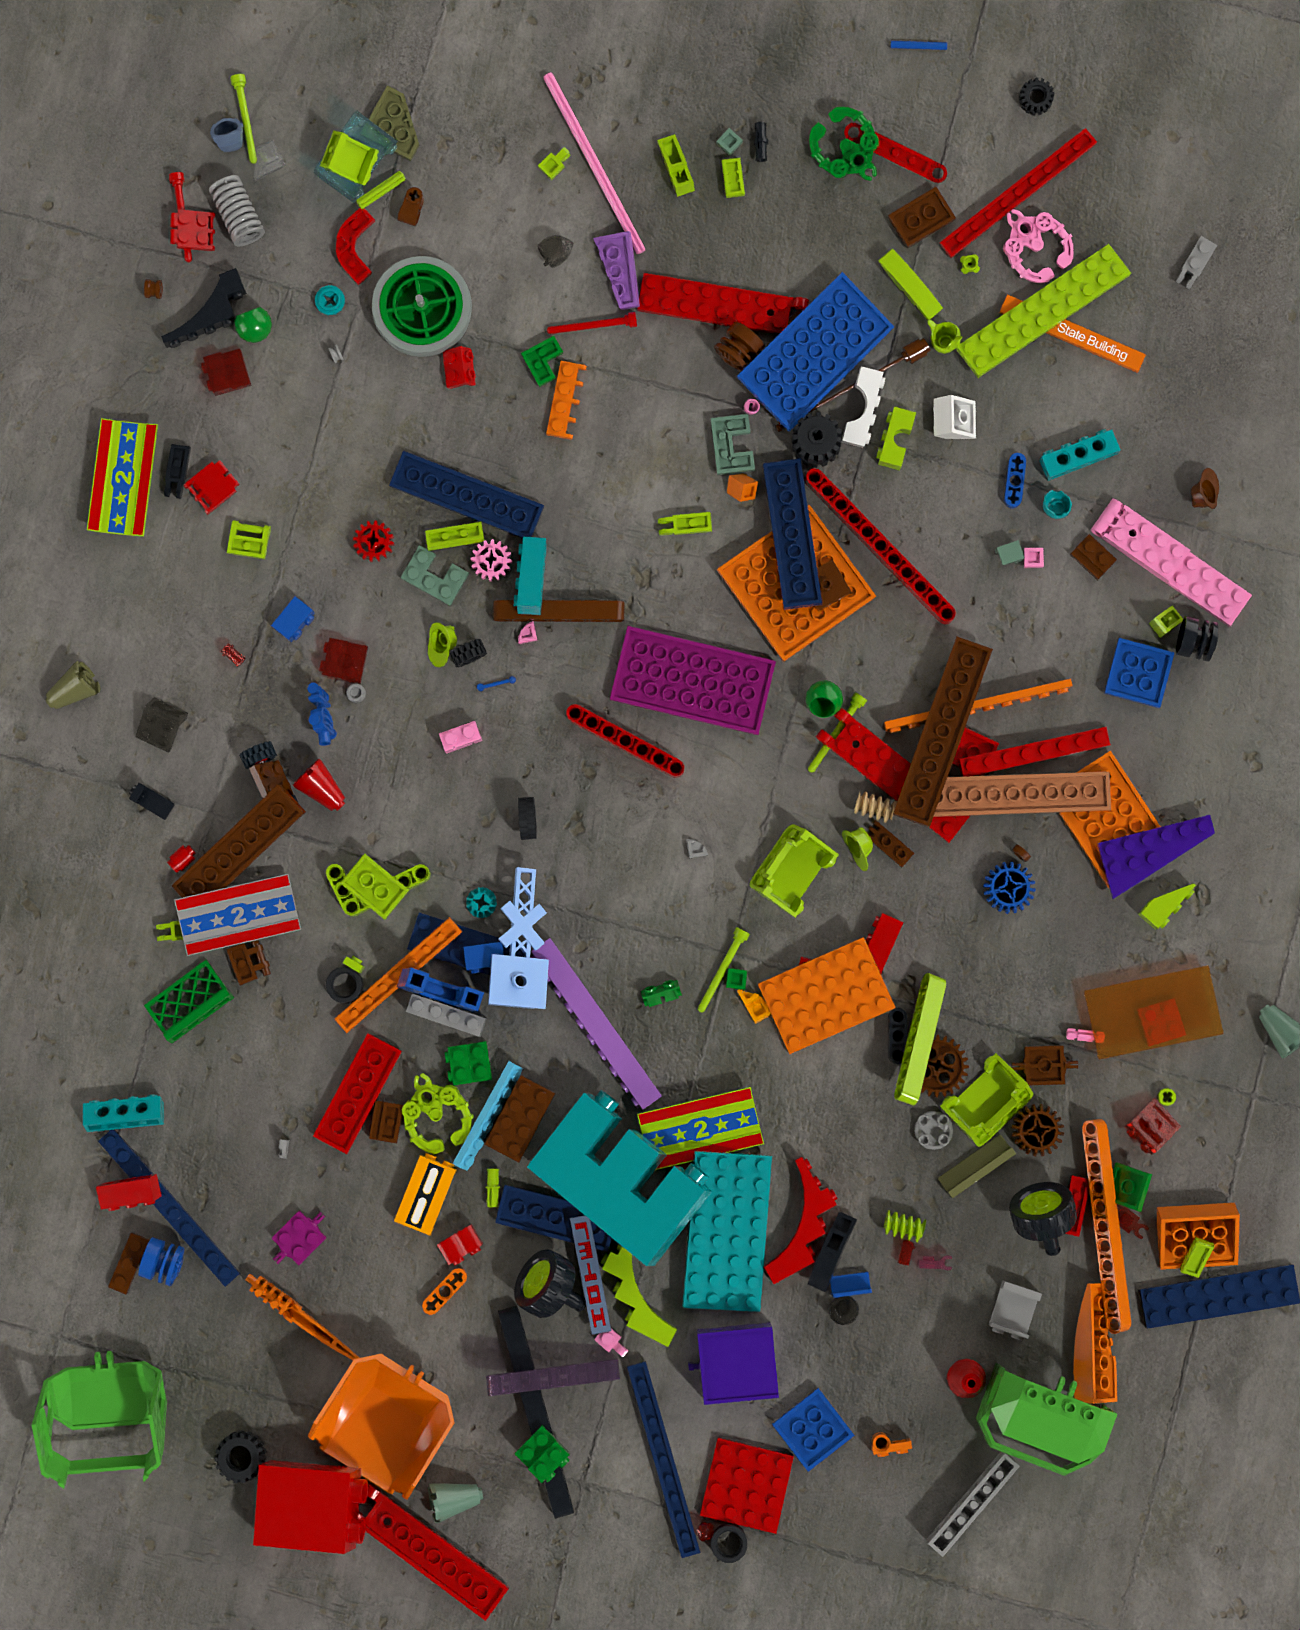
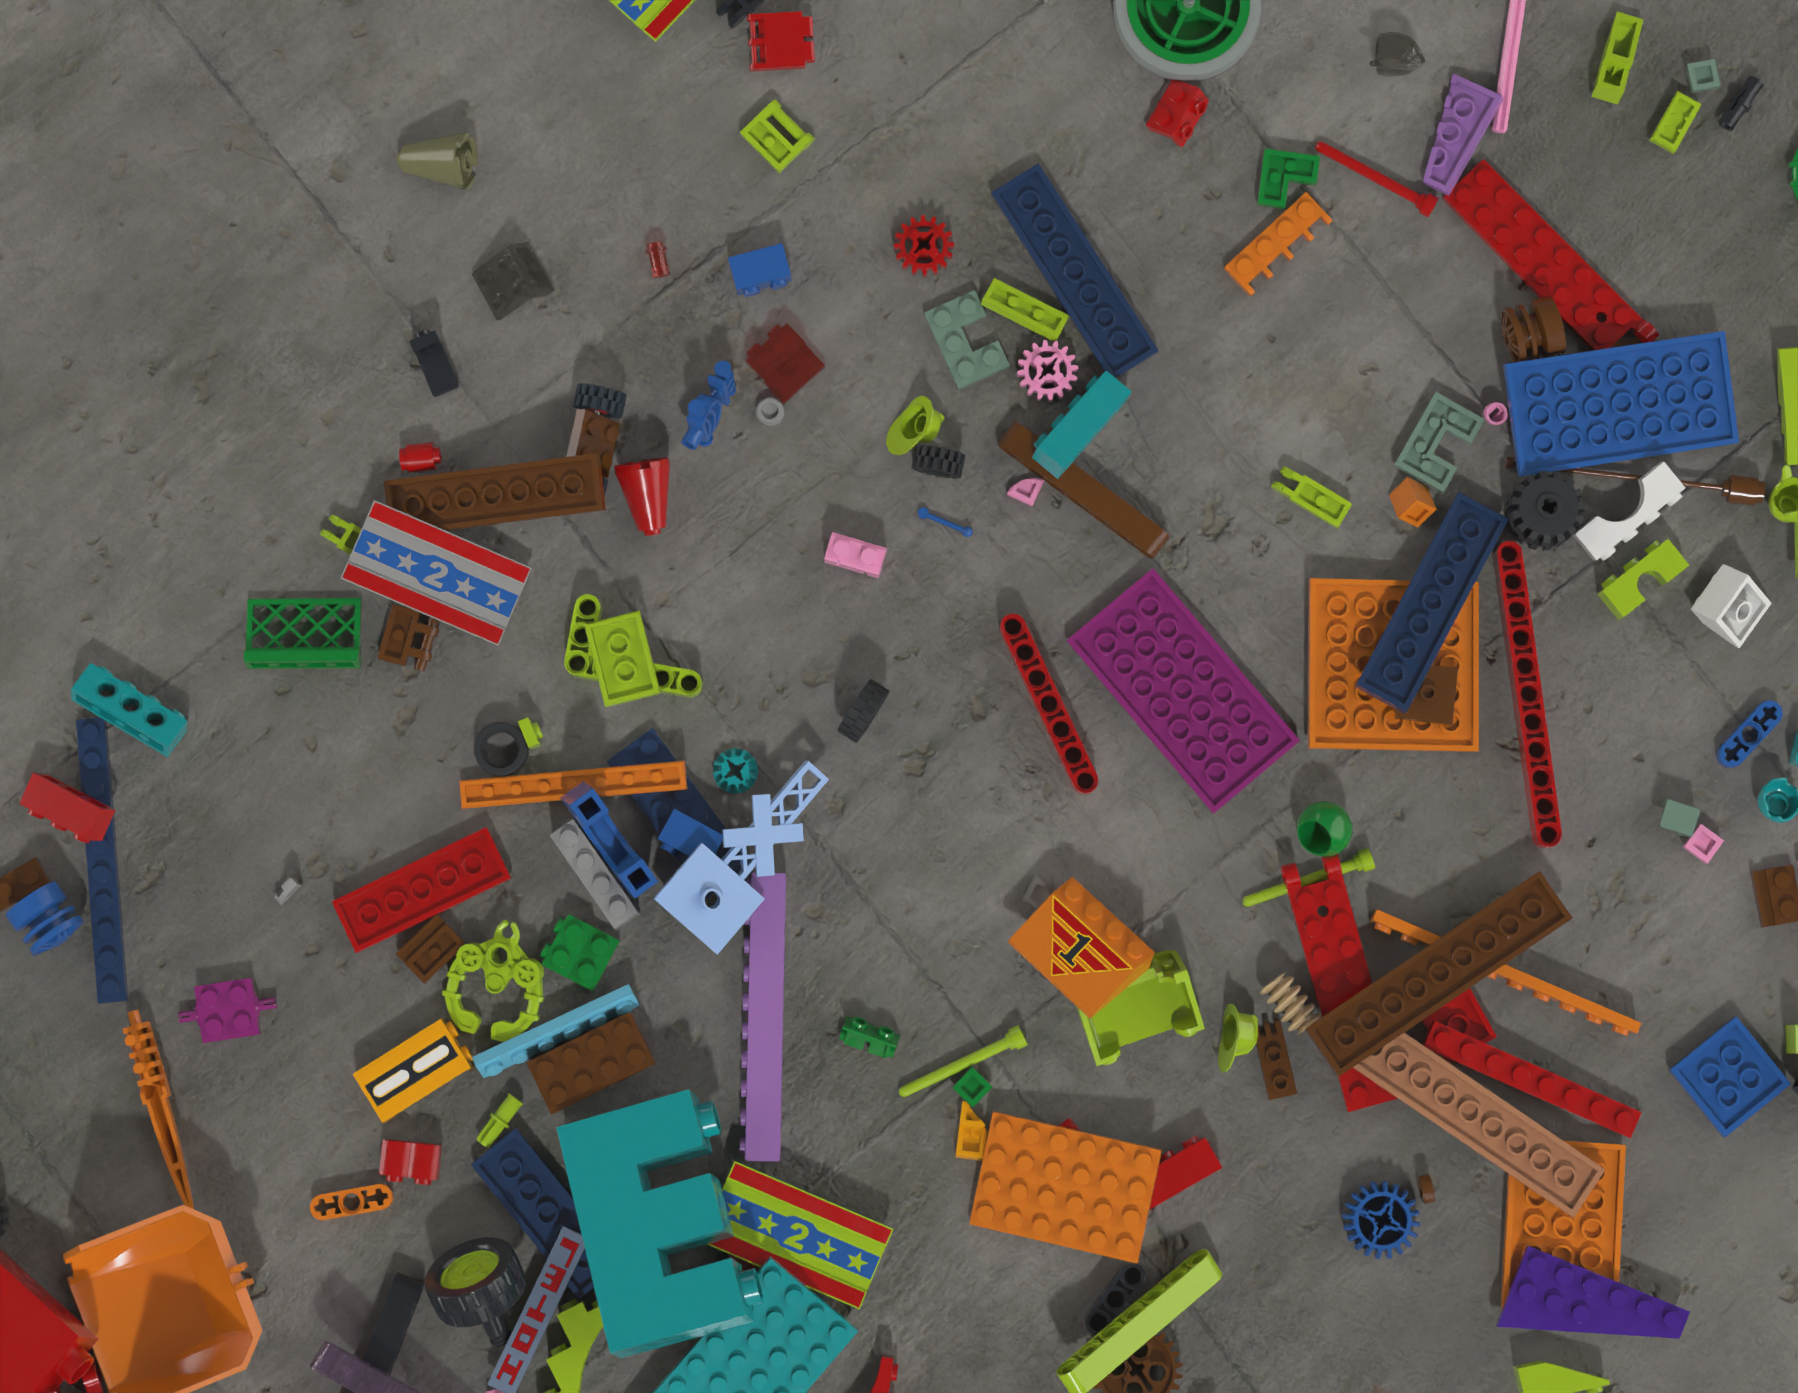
camera: 30 degrees right, 0 degrees up
(740, 859) = (1082, 948): none -> orange slope

